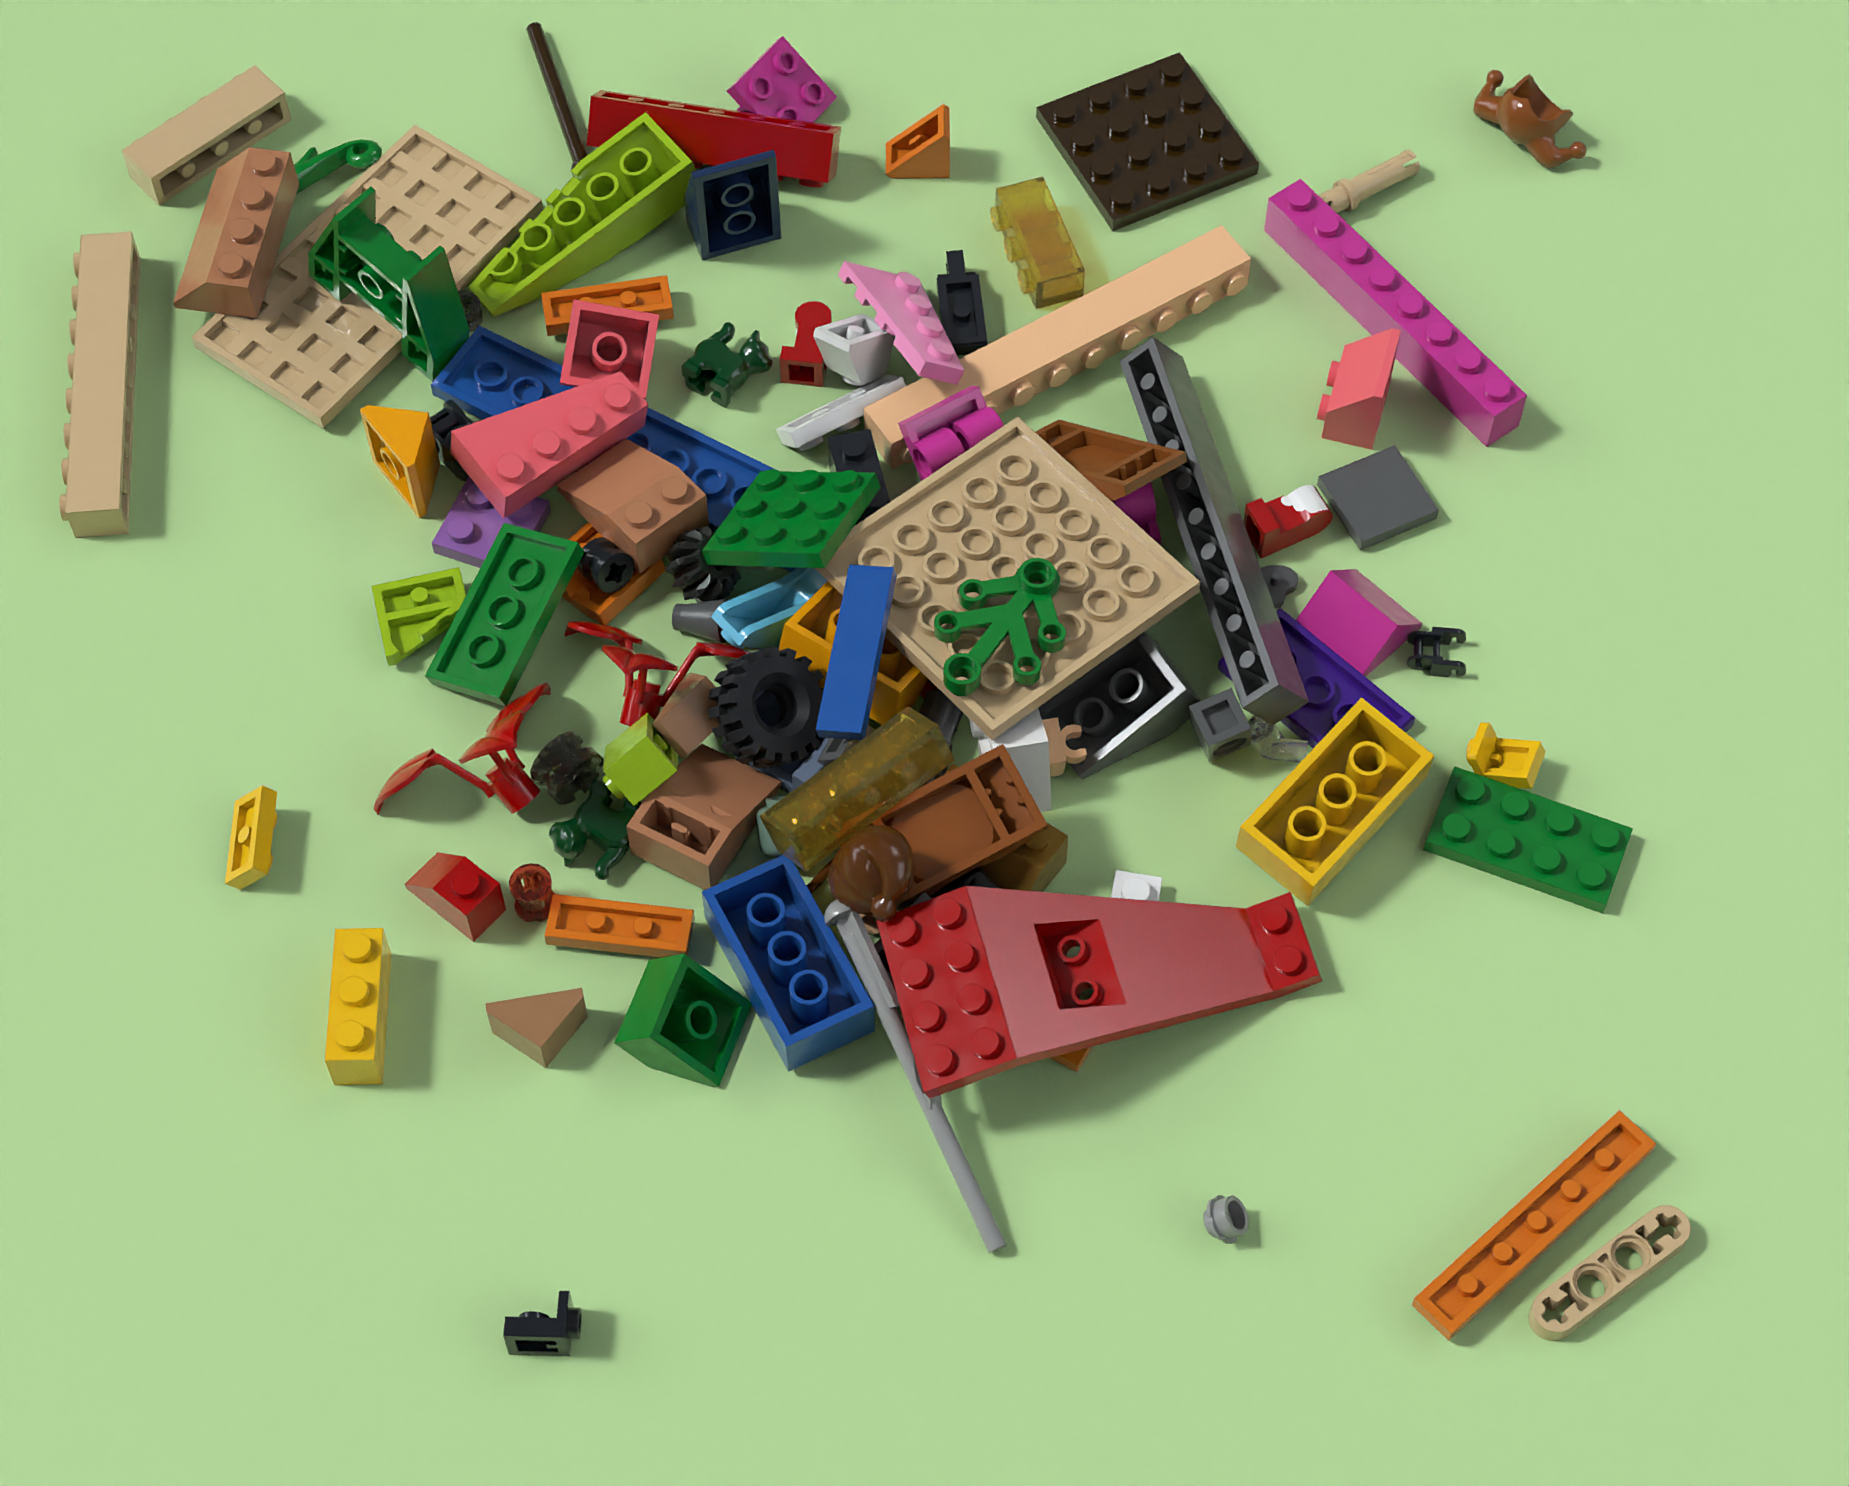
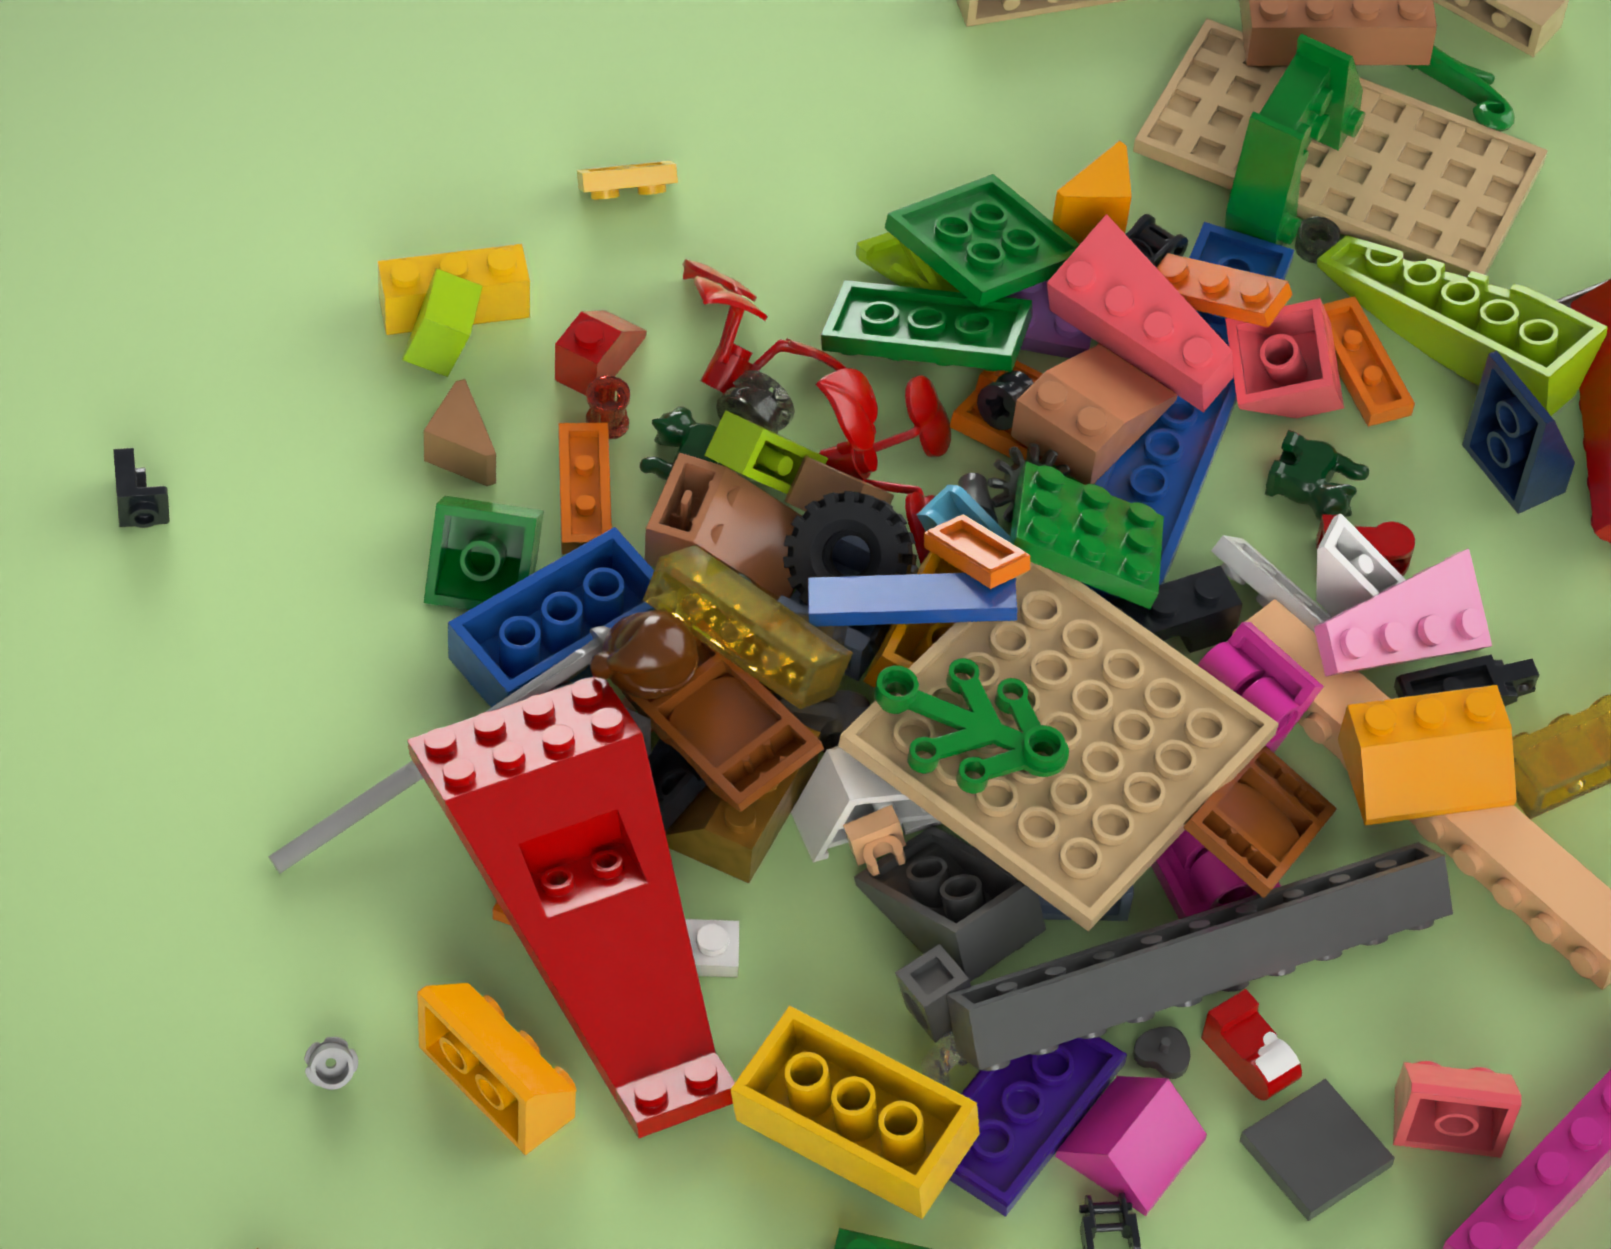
camera: 75 degrees right, 5 degrees down
(412, 1011) = (443, 323): none -> lime slope
(424, 546) = (983, 239): none -> green plate
(532, 372) = (1226, 290): none -> orange plate
(820, 590) = (977, 551): none -> orange tile
(1053, 328) = (1429, 754): none -> light orange slope
(1249, 1077) = (494, 1064): none -> light orange slope

